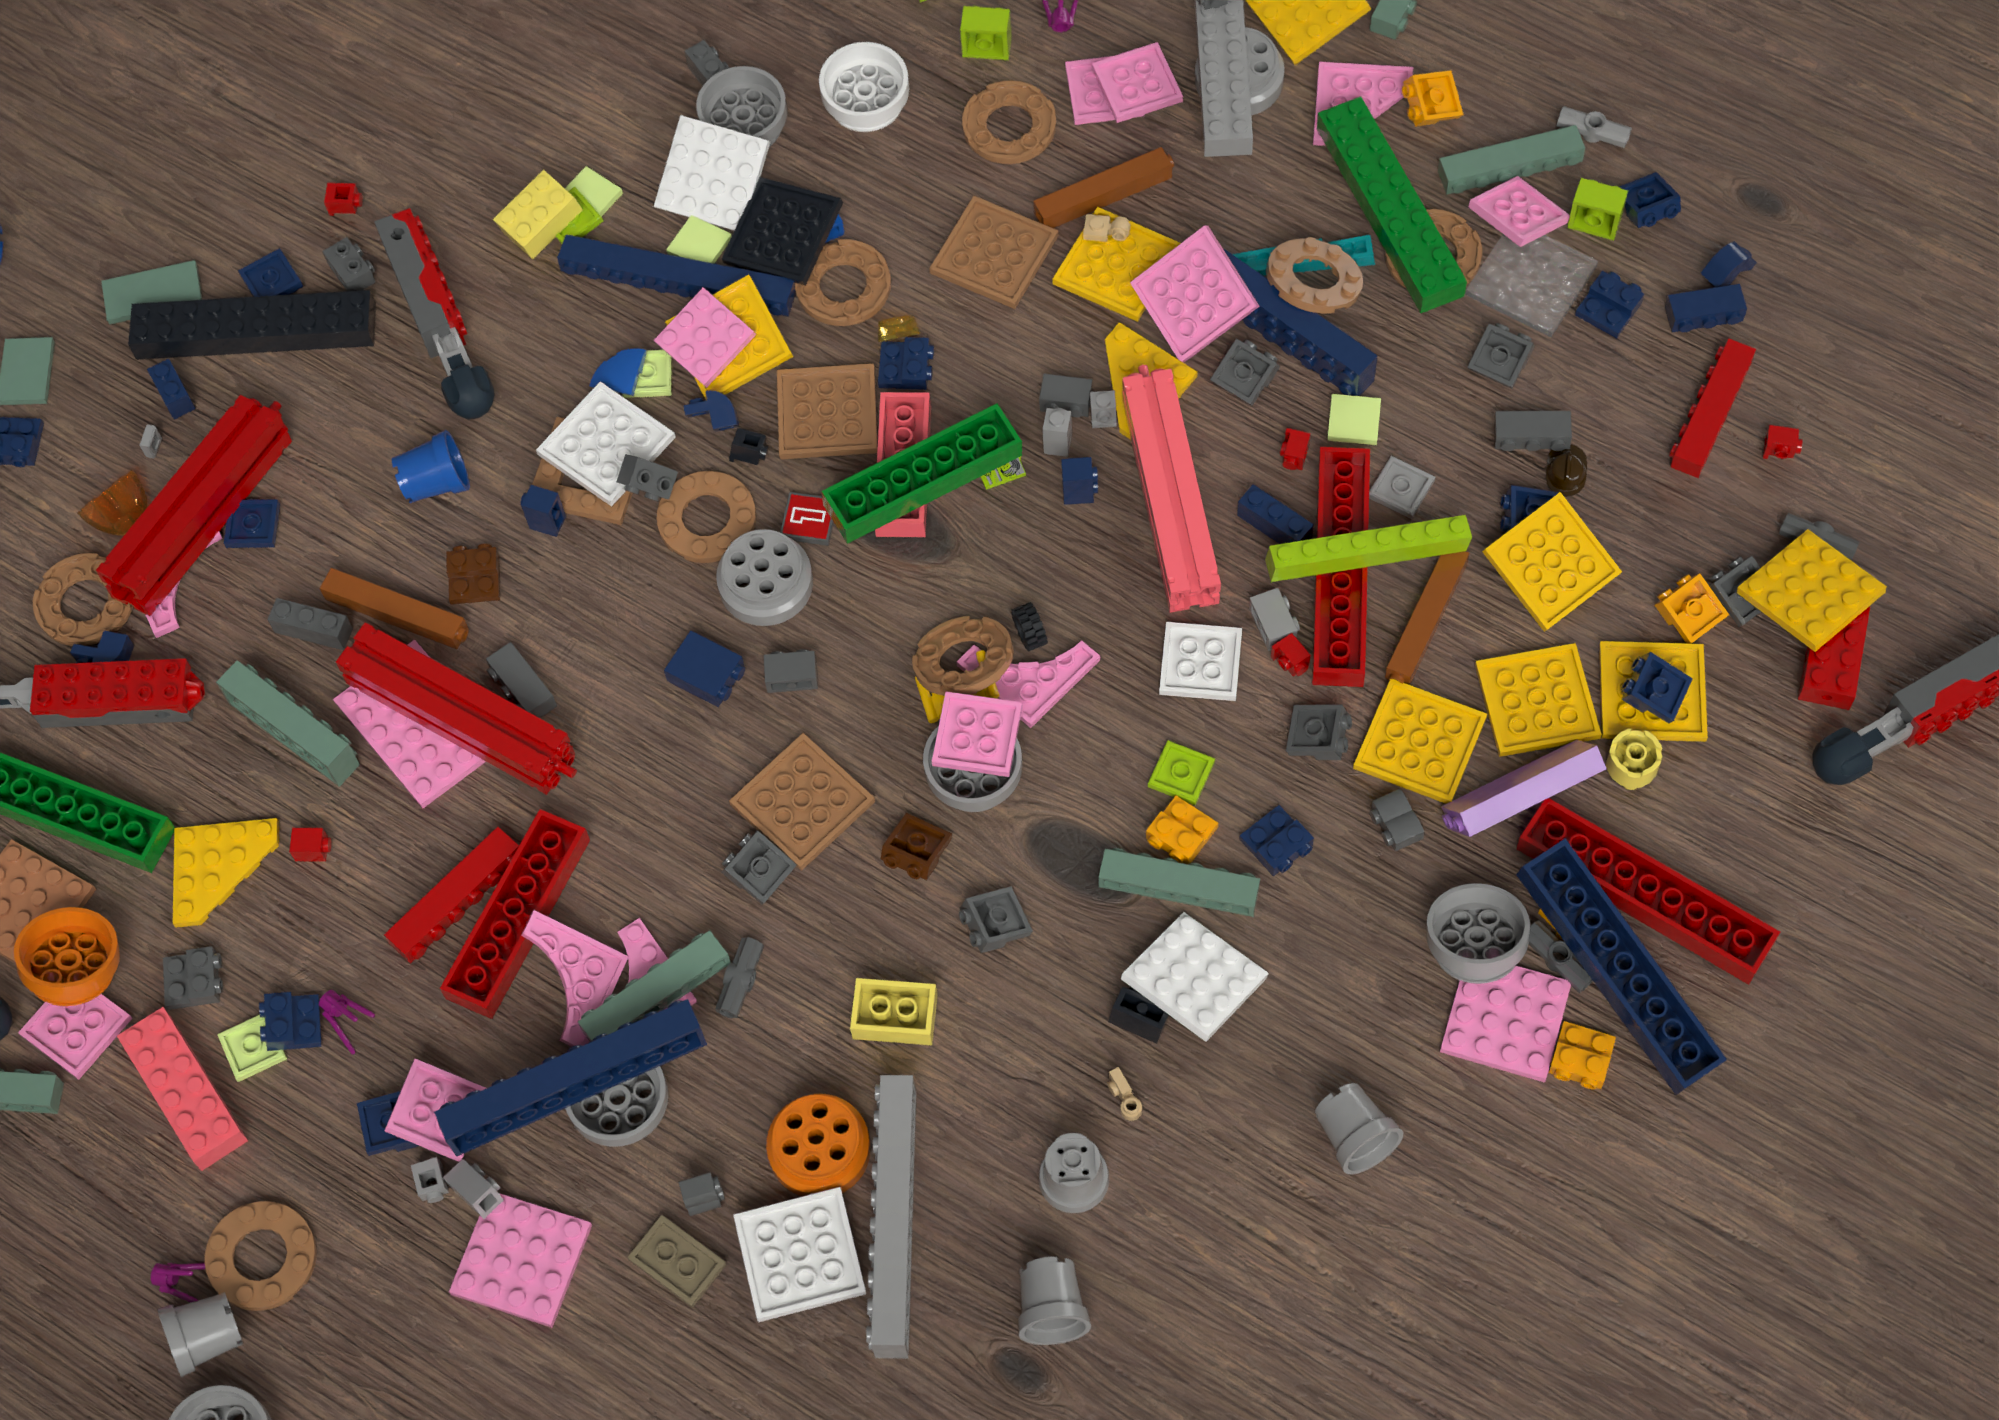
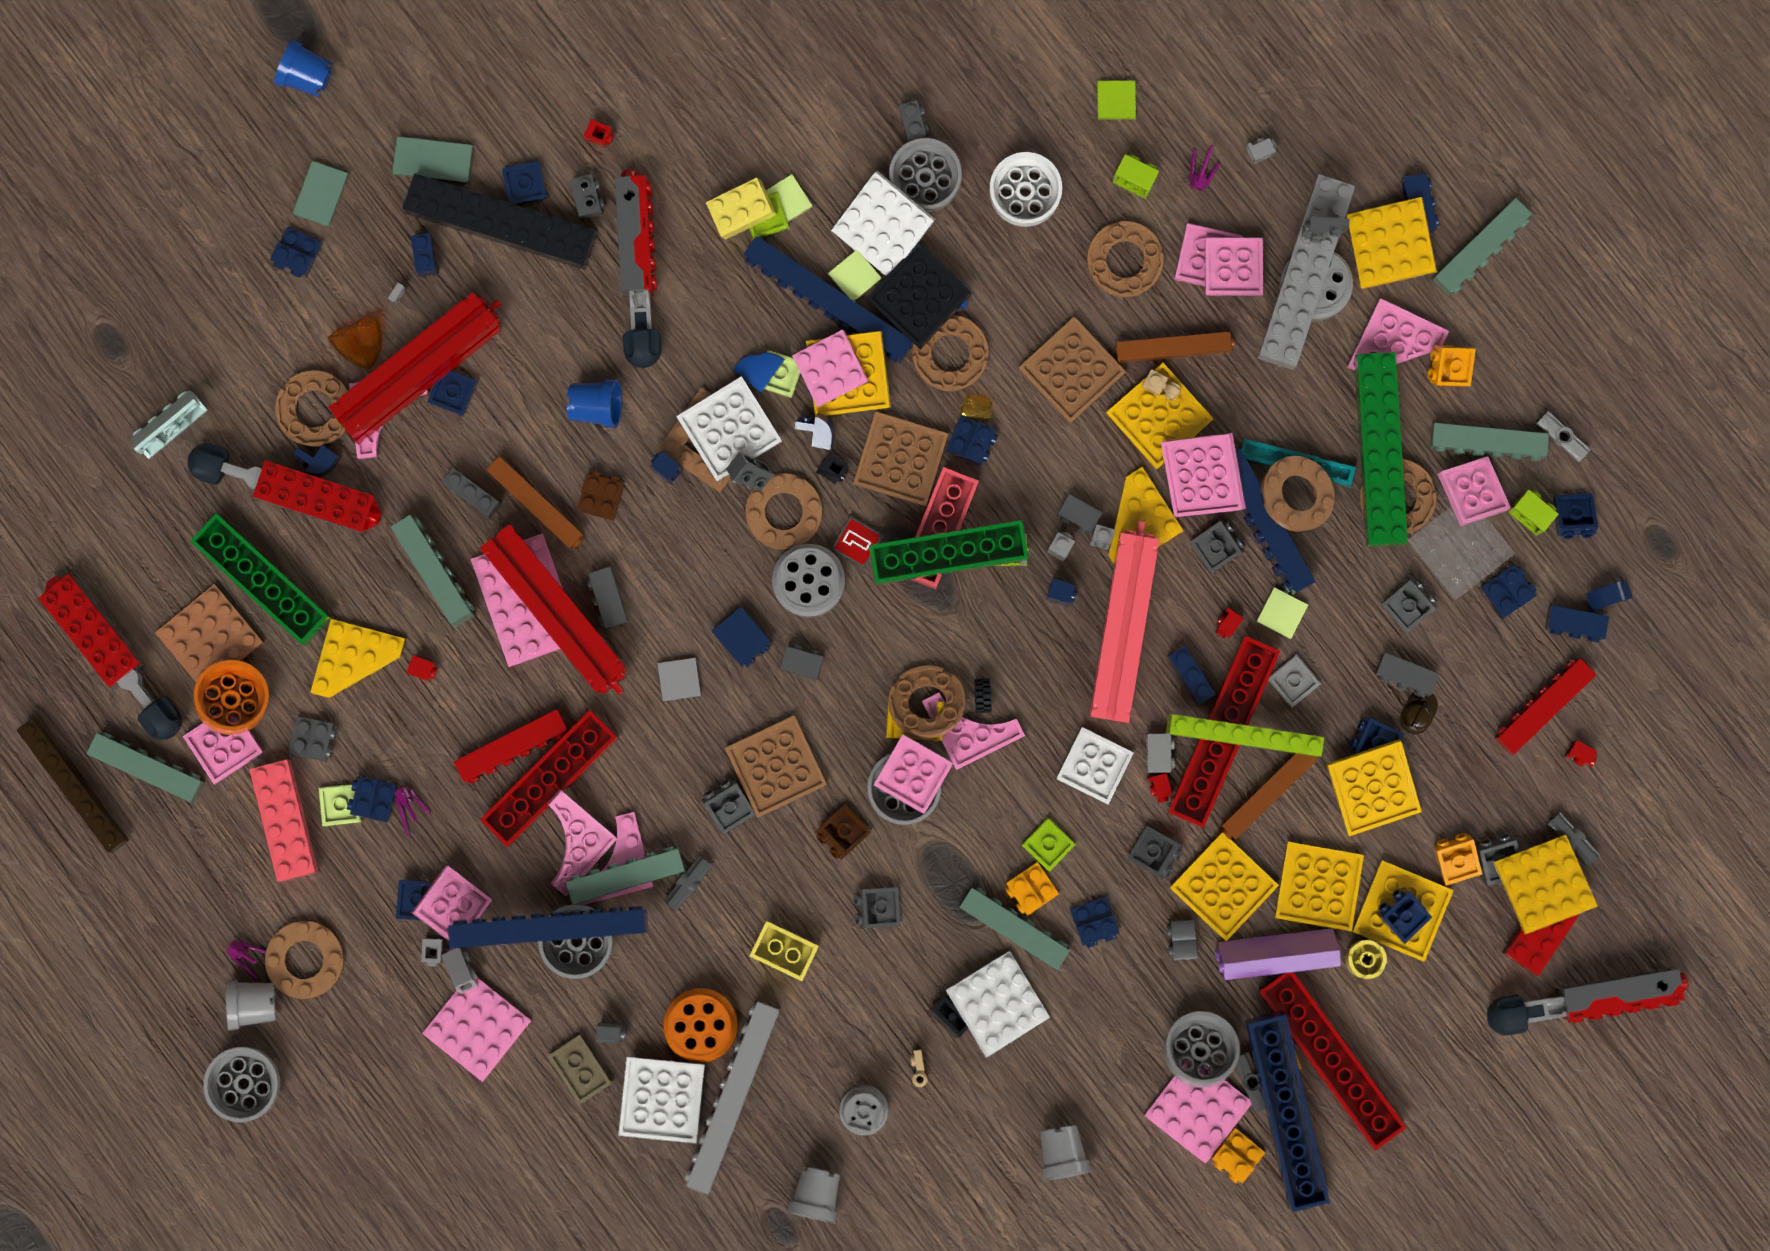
camera: 15 degrees right, 20 degrees up
(643, 746) = (679, 679): none -> light grey tile

